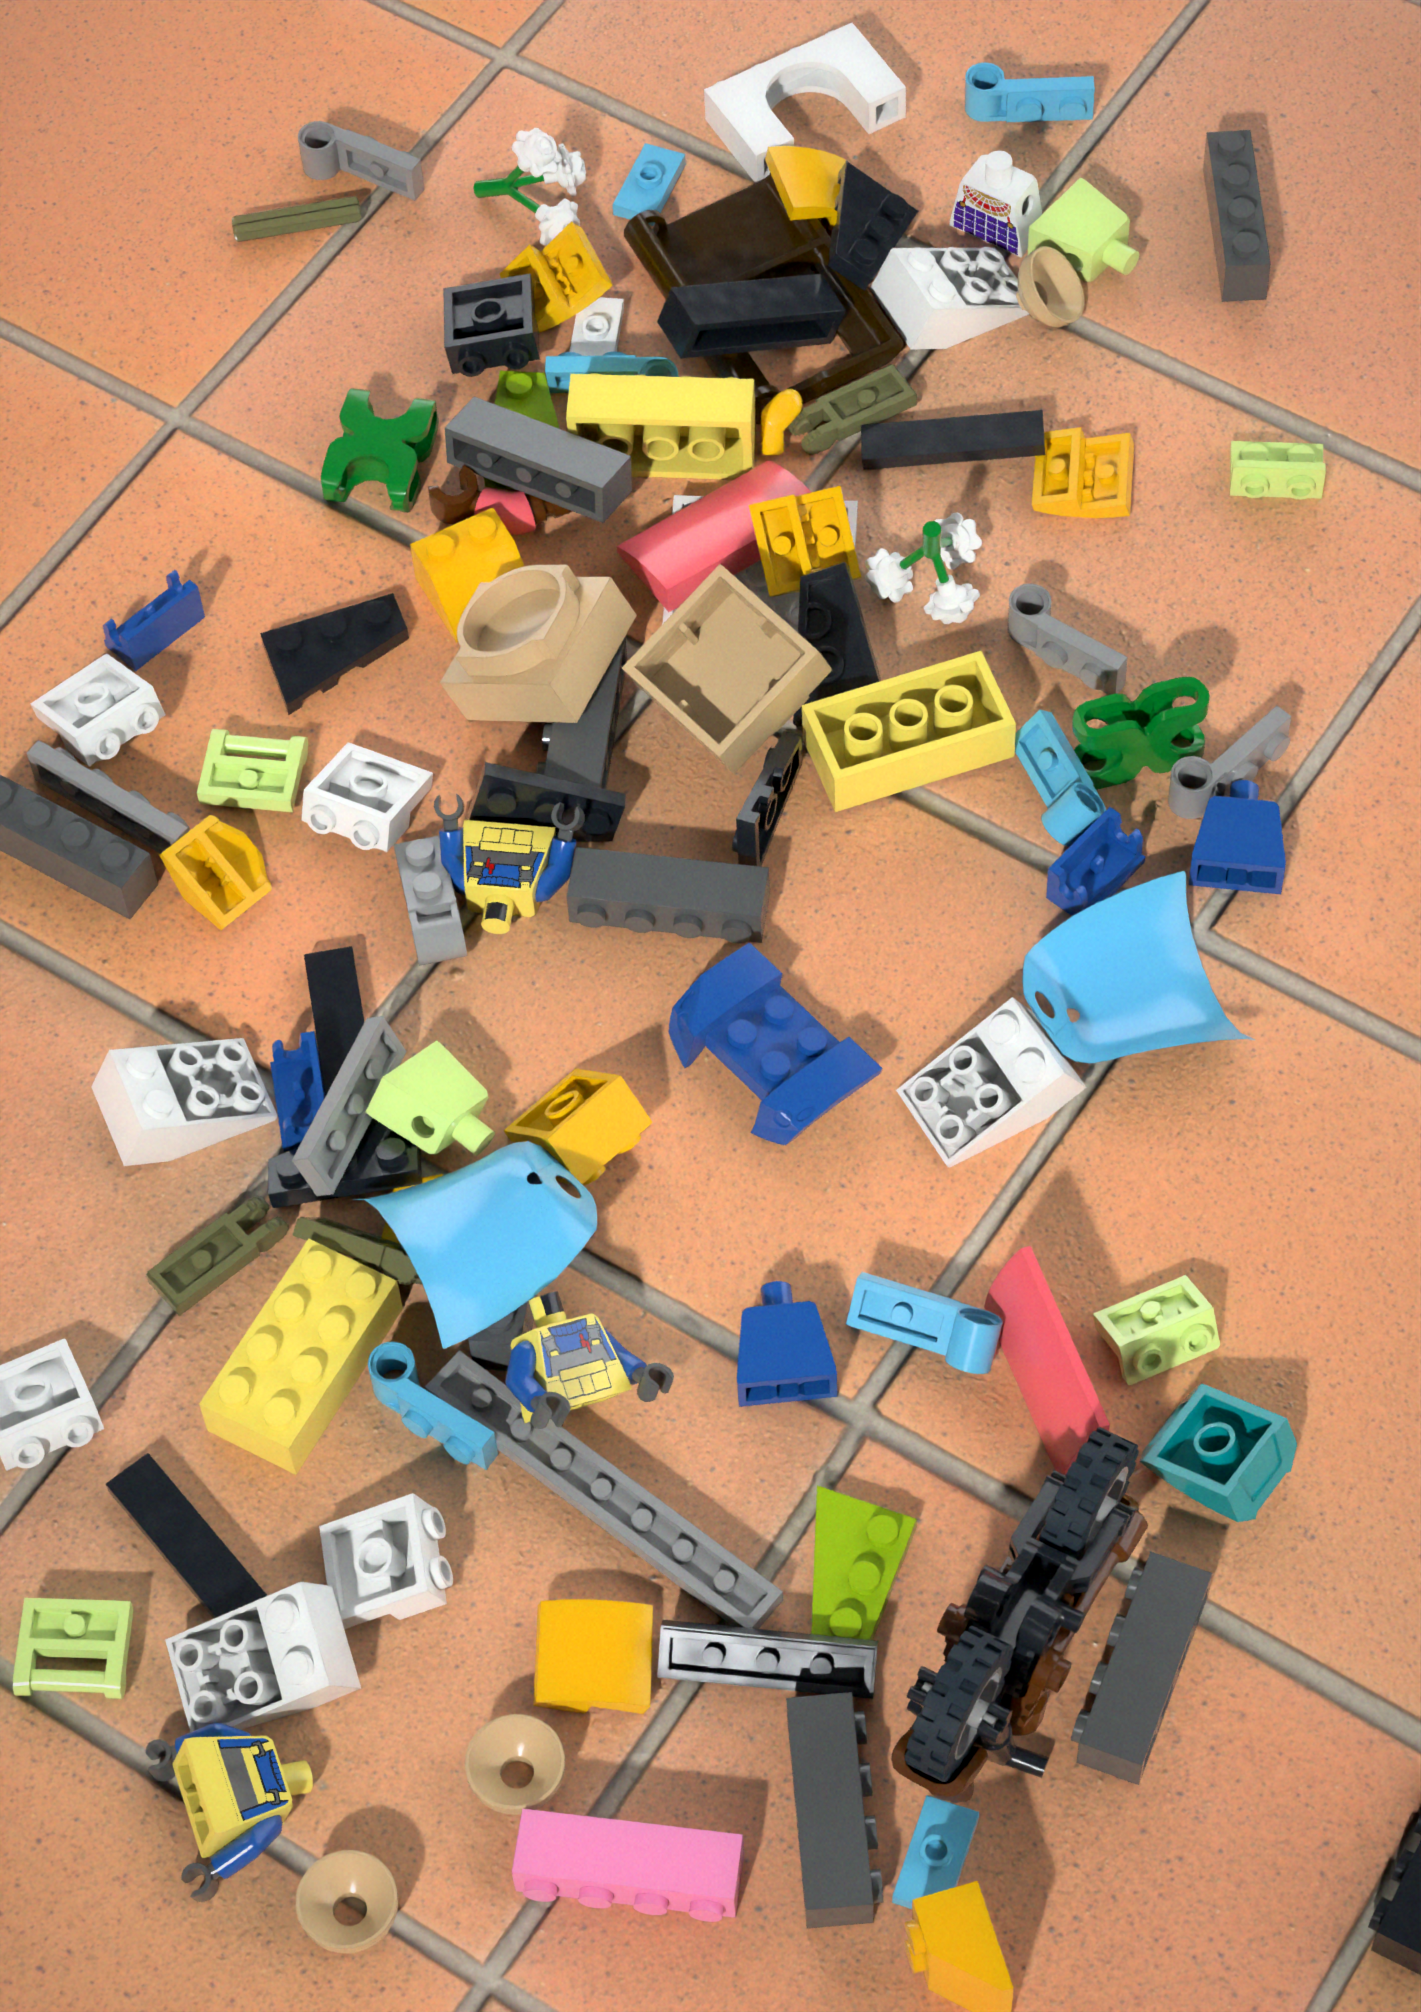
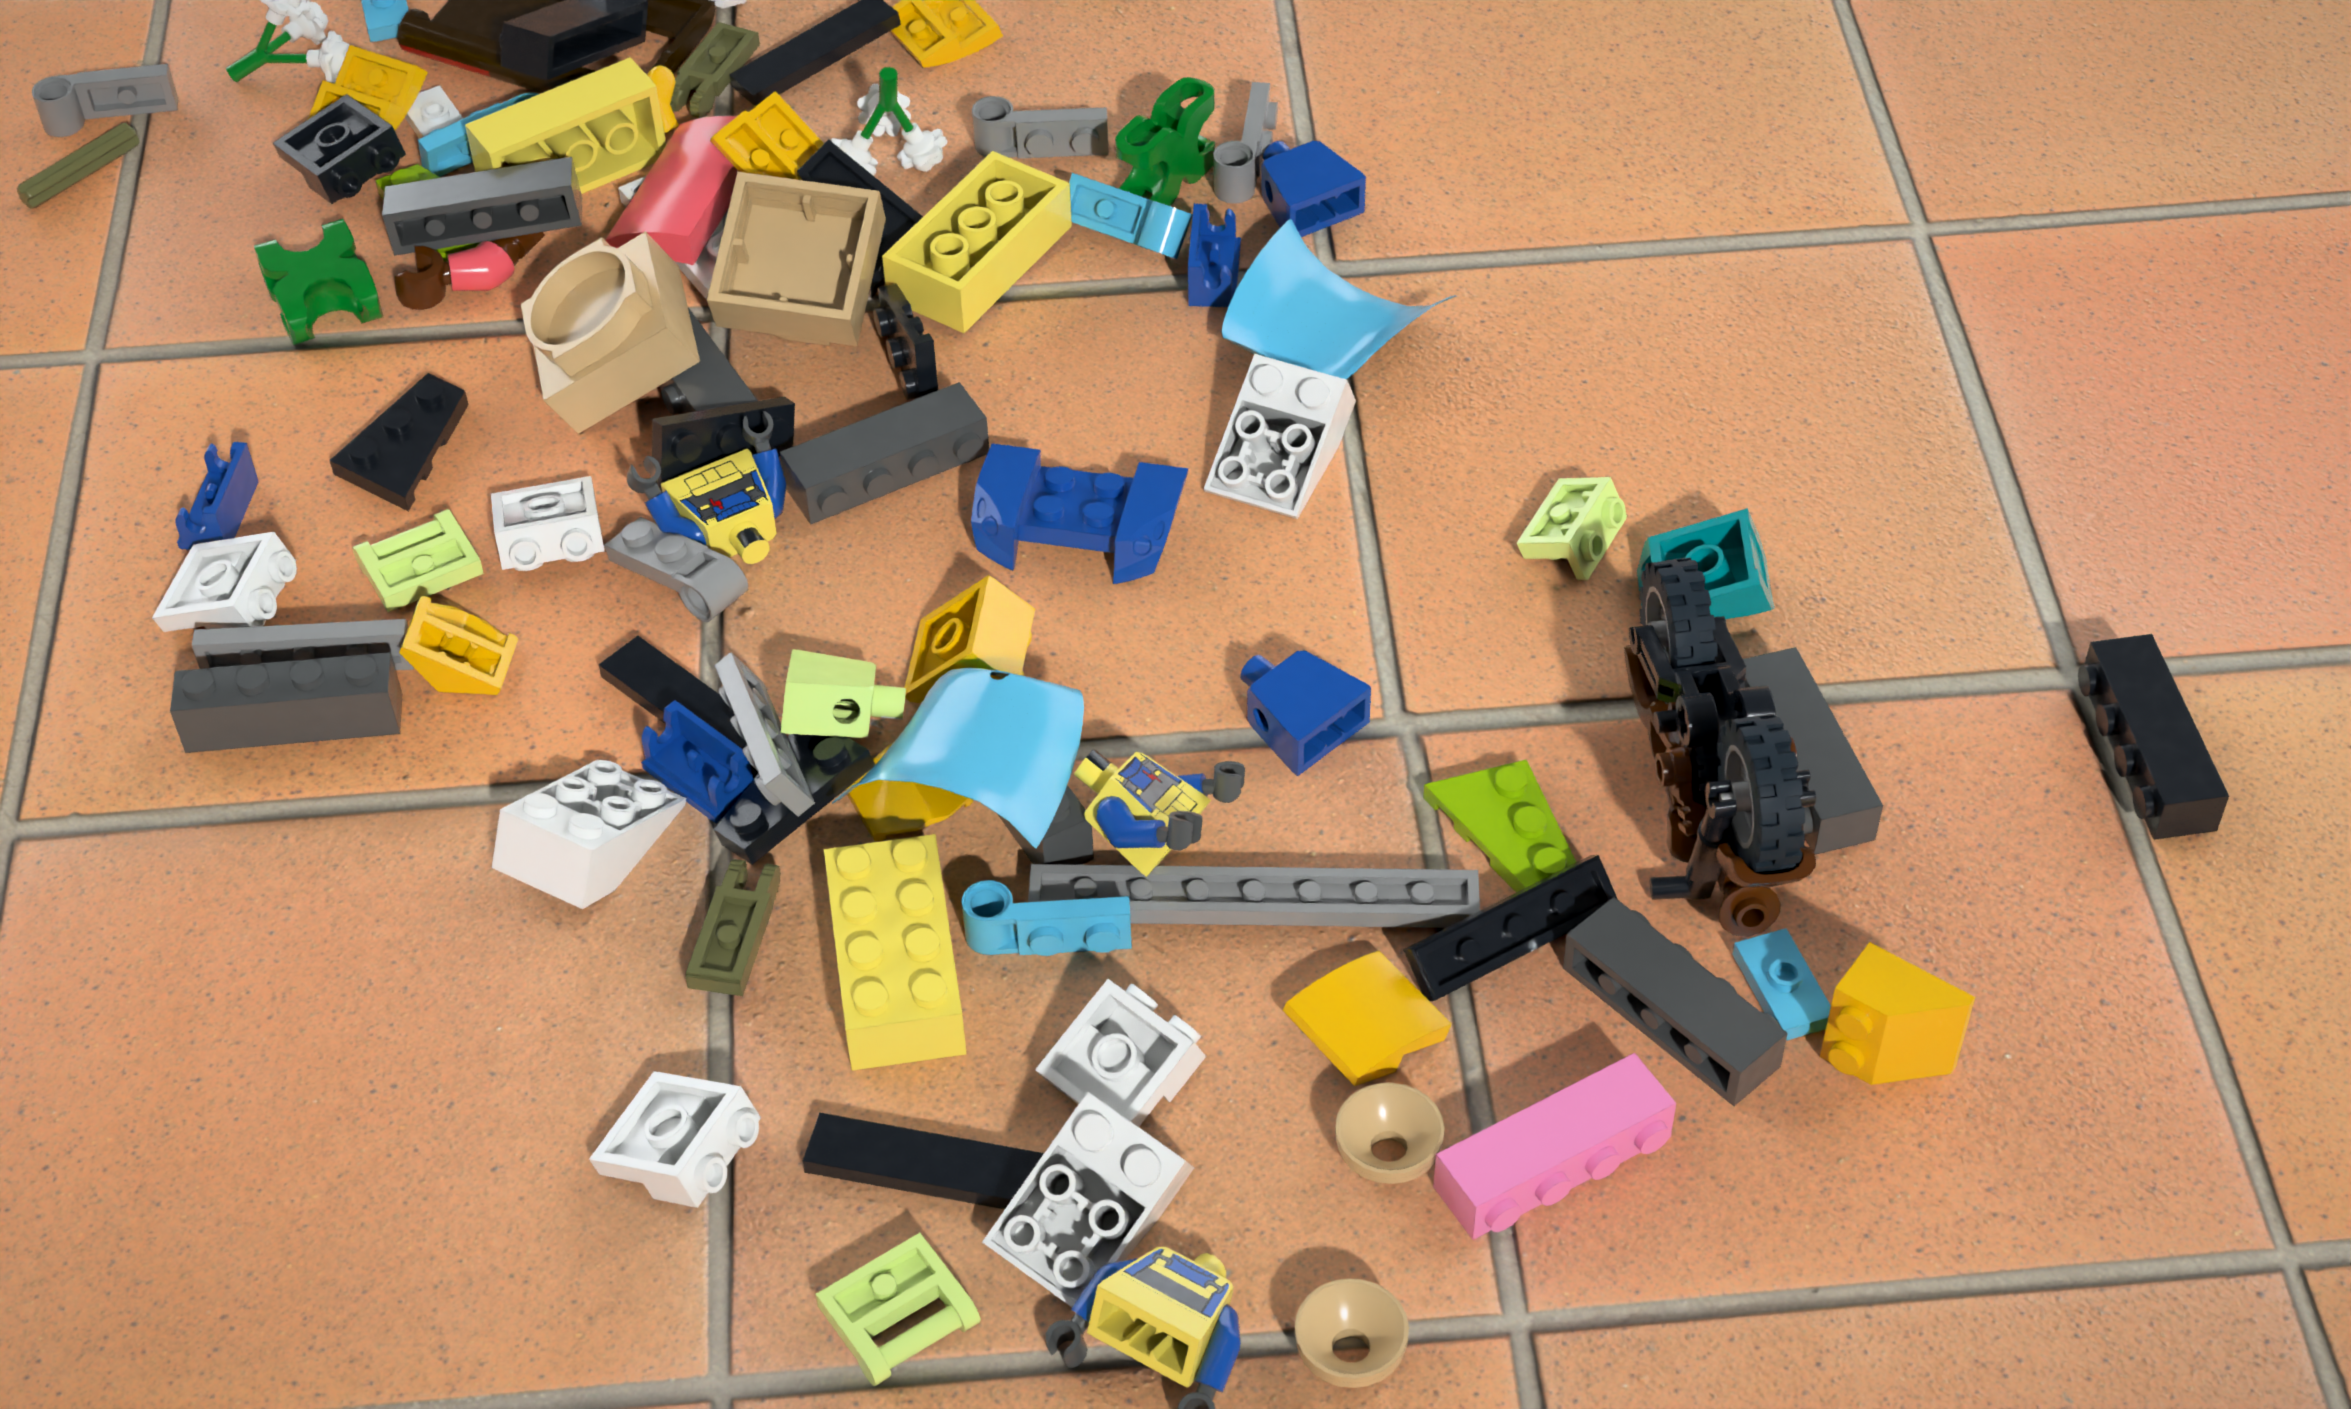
camera: 40 degrees left, 10 degrees down
(364, 1247) = (896, 826): olive hinge -> none
(459, 558) = (481, 324): yellow slope -> none
(926, 1321) = (1396, 620): medium azure plate -> none
(1044, 1359) = (1529, 586): coral slope -> none

